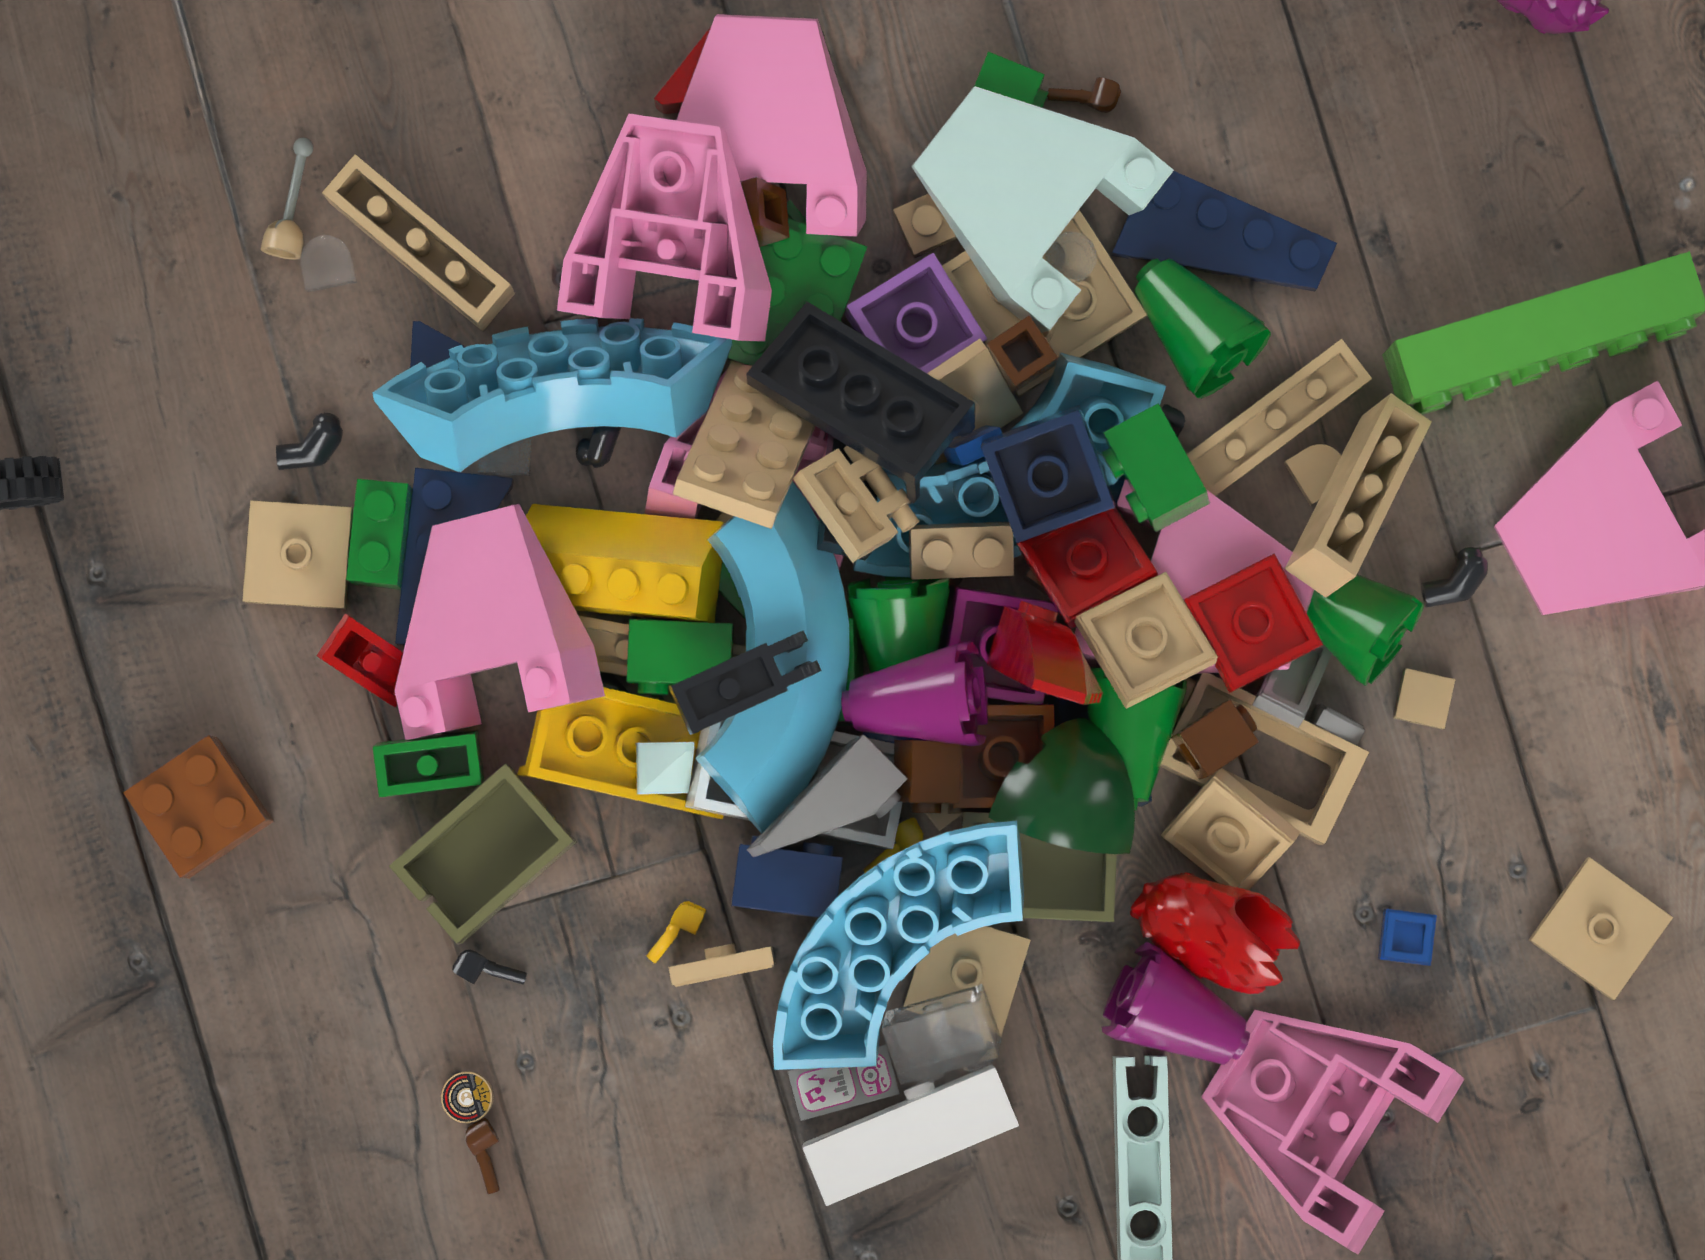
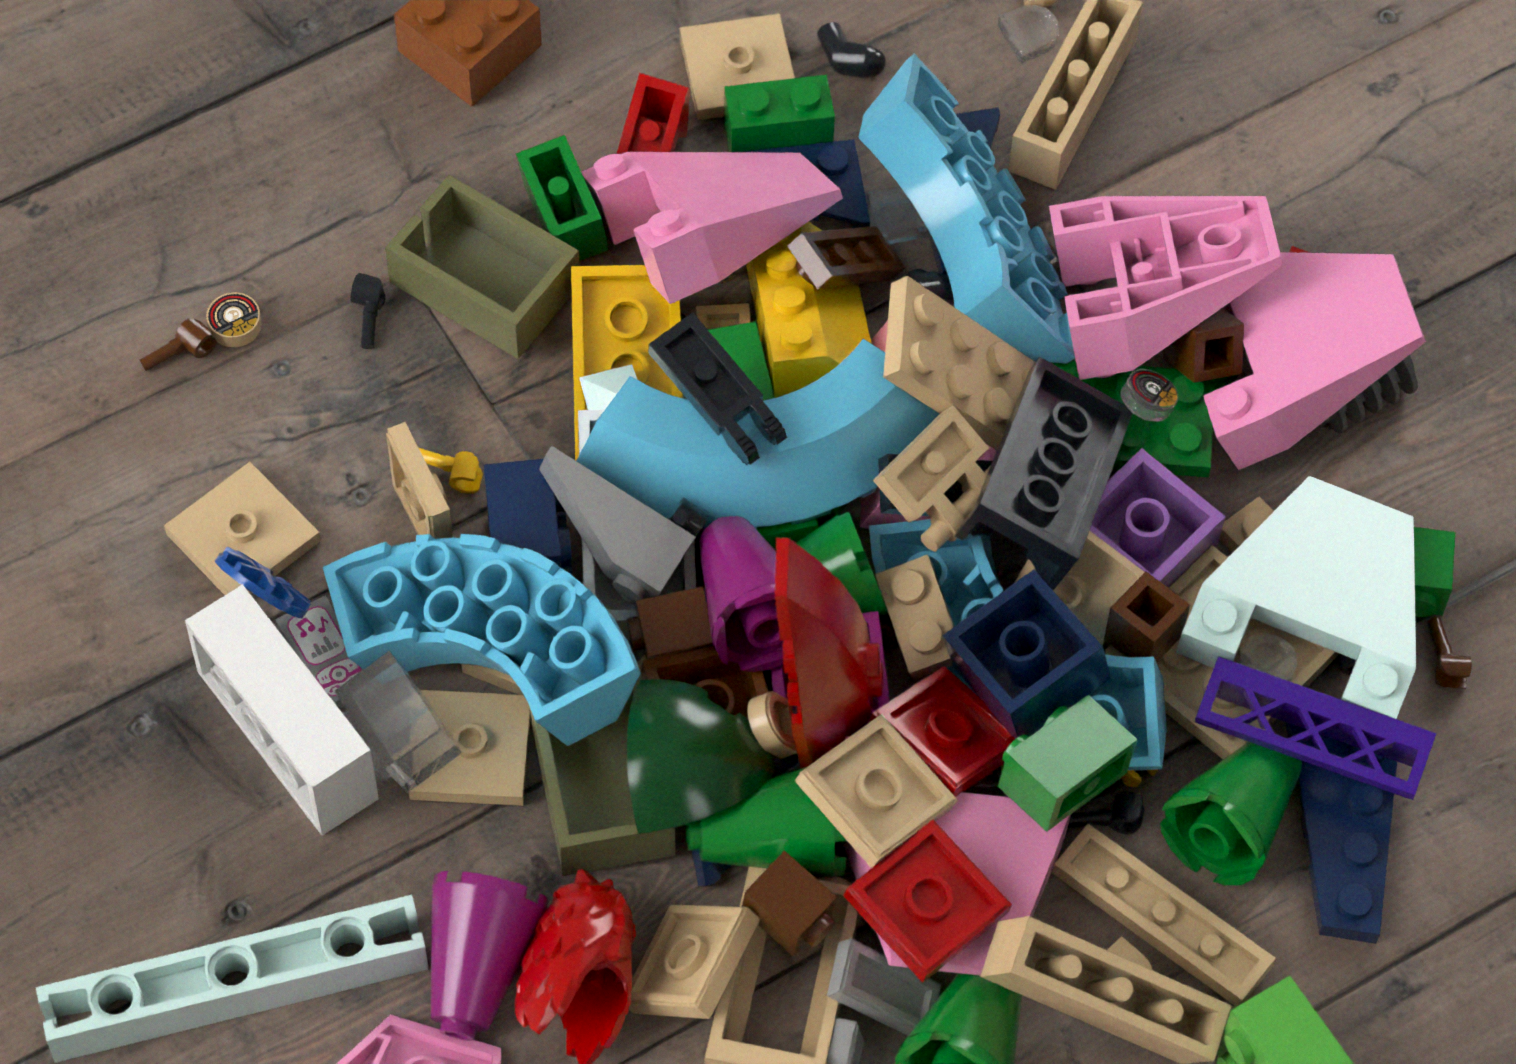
camera: 75 degrees right, 25 degrees down
(571, 515) = (845, 257): none -> reddish brown plate
(699, 1133) = (247, 517): none -> tan plate
(787, 1120) = (262, 583): none -> blue wheel
(796, 282) = (1149, 395): none -> tile
(842, 737) = (689, 517): none -> black hand
(1047, 711) = (771, 723): none -> tan tile
(1139, 230) = (1319, 716): none -> dark purple fence

